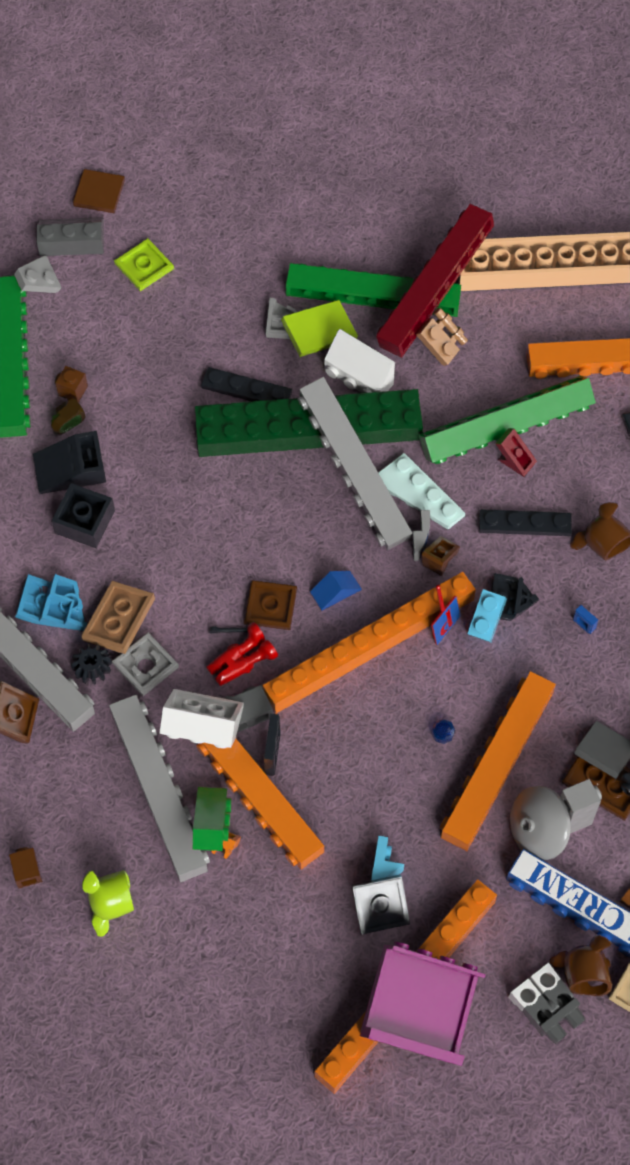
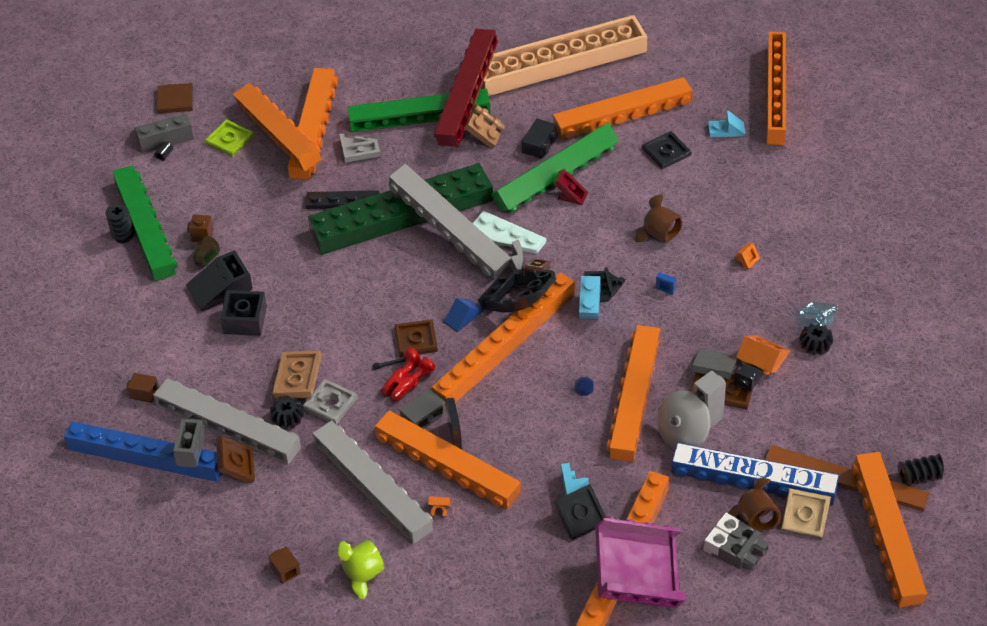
camera: 15 degrees left, 15 degrees down
(38, 277) = (147, 164): light grey wing -> none
(56, 608) = (244, 382): dark azure slope -> none
(63, 262) = (163, 151): none -> black hinge
(199, 272) = (278, 127): none -> orange brick
(201, 718) = (391, 420): white slope -> none
(211, 819) = (424, 485): green brick -> none
(243, 274) = (315, 114): none -> orange brick
(317, 327) = (386, 144): lime tile -> none
(358, 365) = (427, 156): white slope -> none
(416, 599) = (535, 282): none -> black slope
(447, 617) = (559, 306): piece -> none
(502, 370) = (539, 138): none -> black brick
(525, 522) = (594, 233): black plate -> none

